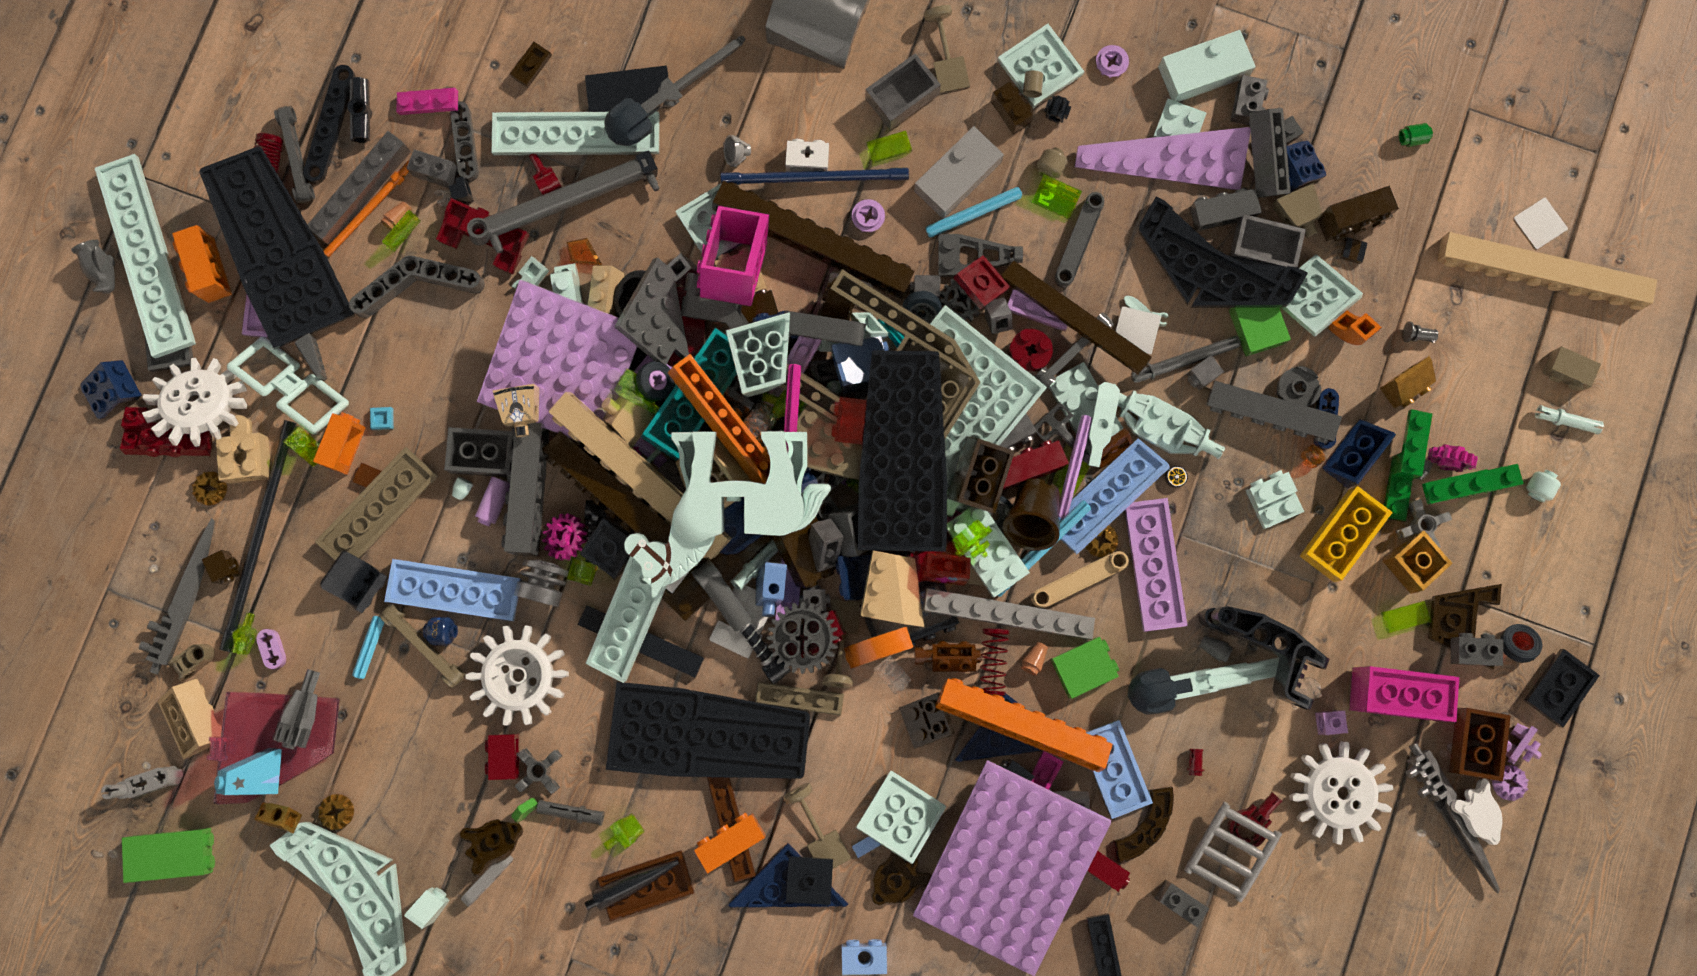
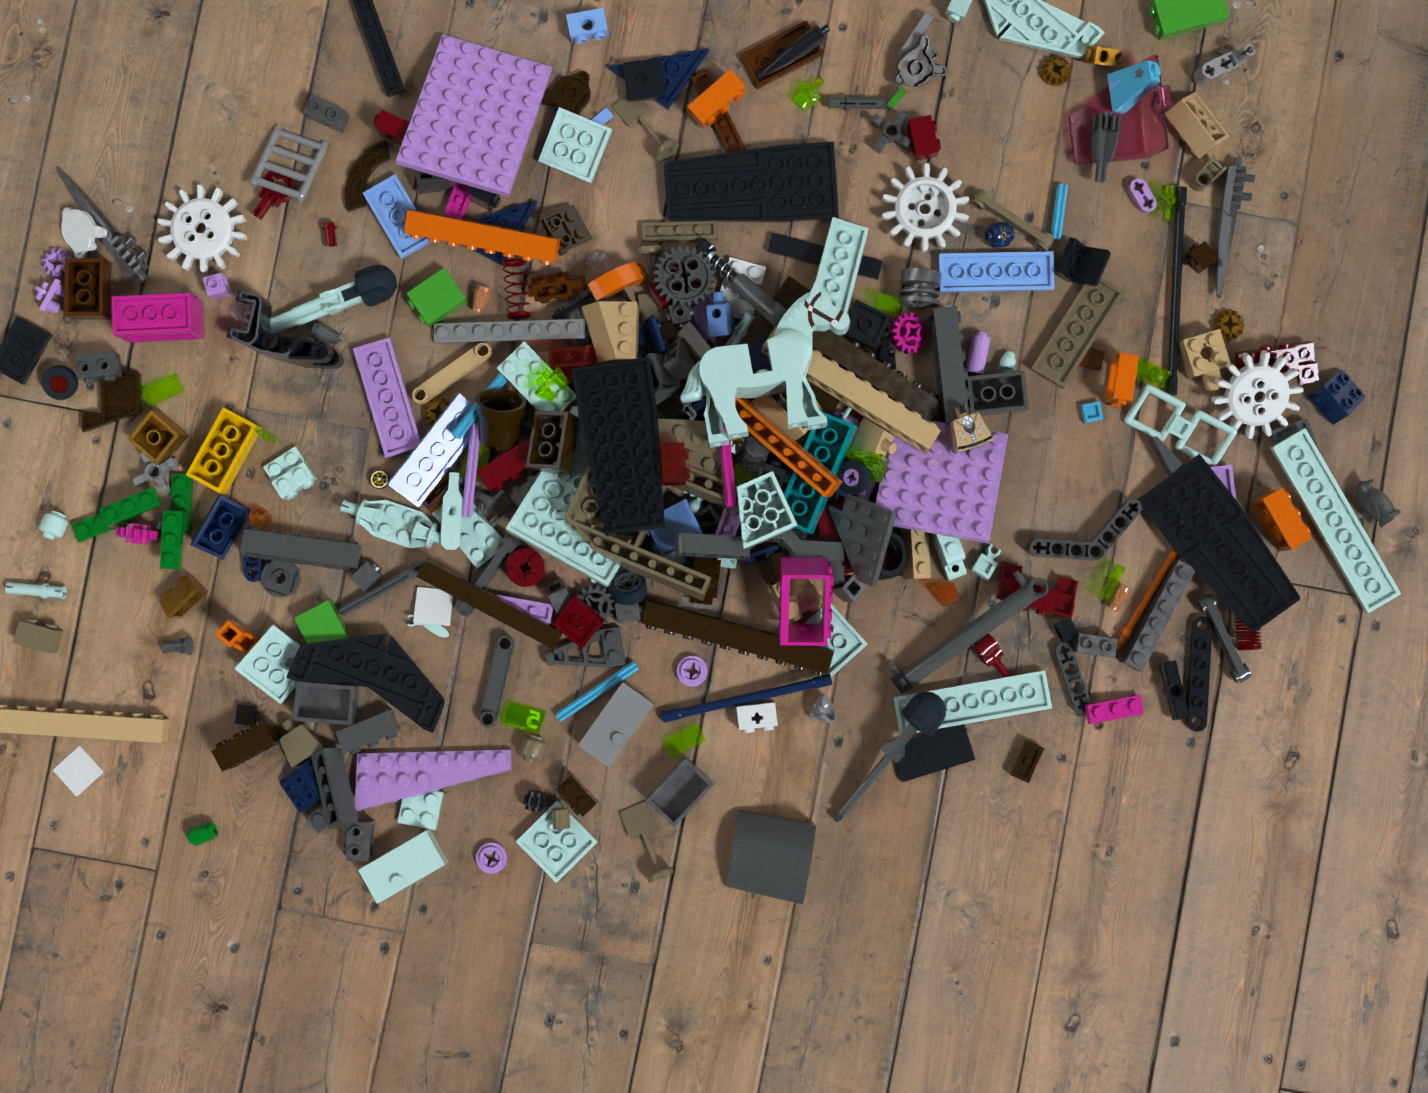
camera: 170 degrees right, 5 degrees up
(1295, 541) = (267, 437): none -> clear neon green piece

